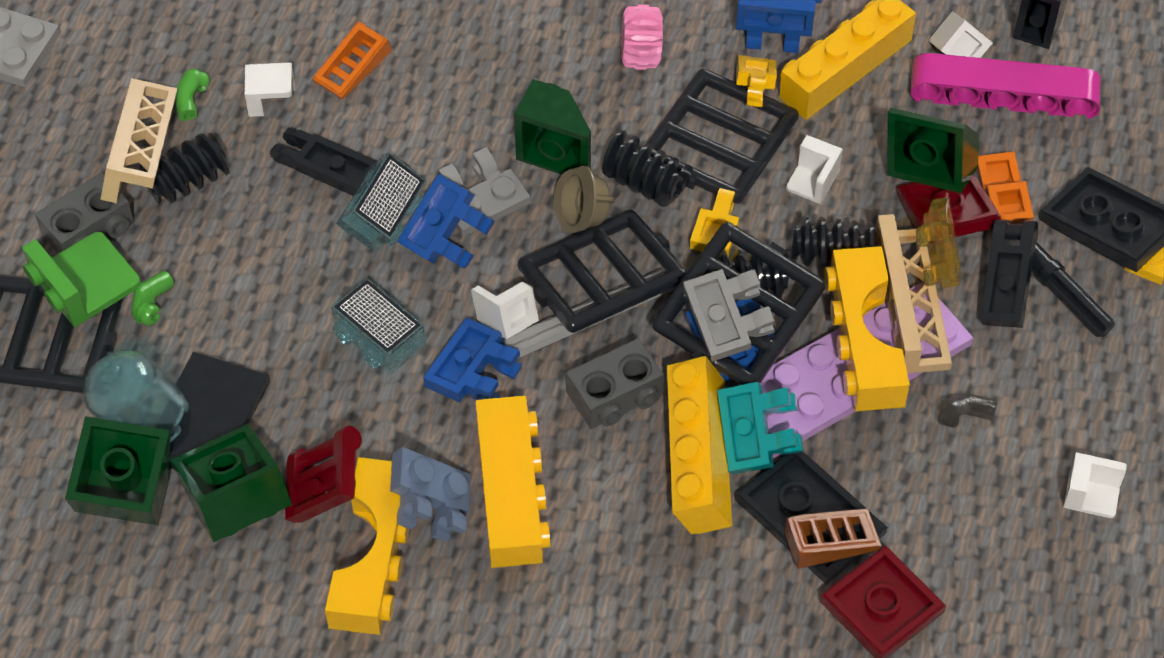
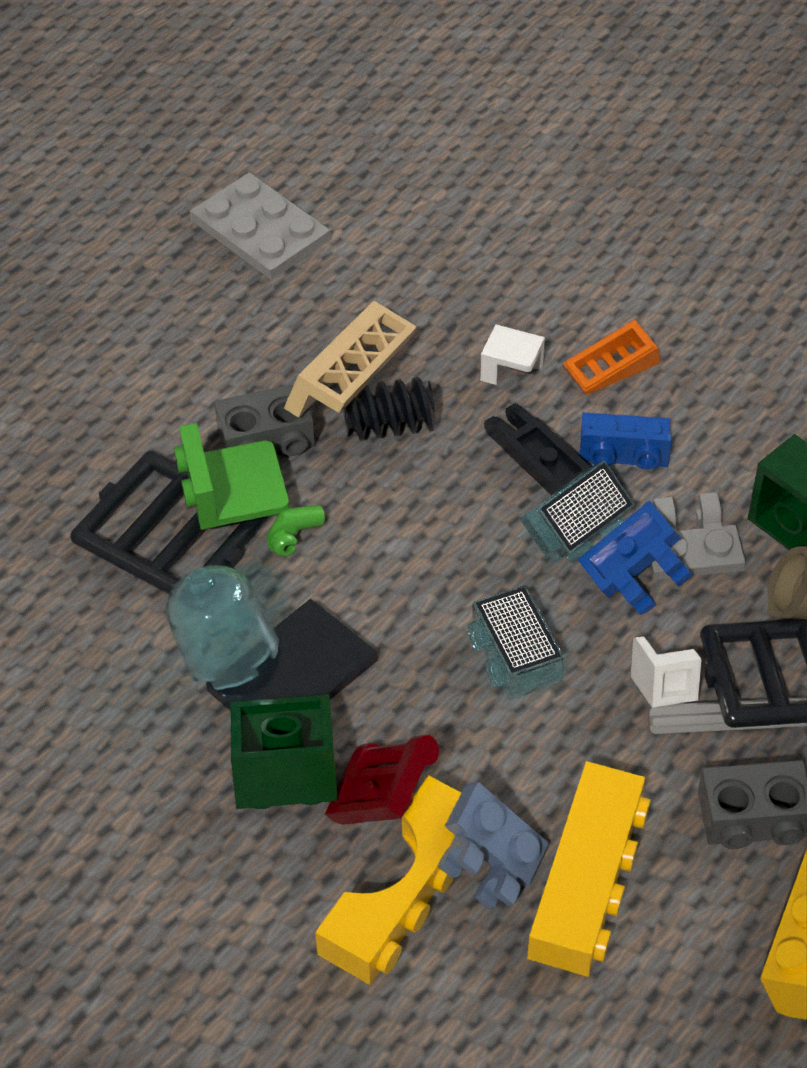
camera: 25 degrees right, 5 degrees down
(120, 471) = (172, 694): dark green slope -> none
(189, 83) = (434, 326): bright green arm -> none
(392, 127) = (625, 440): none -> blue bracket
(464, 359) = (596, 712): blue plate -> none

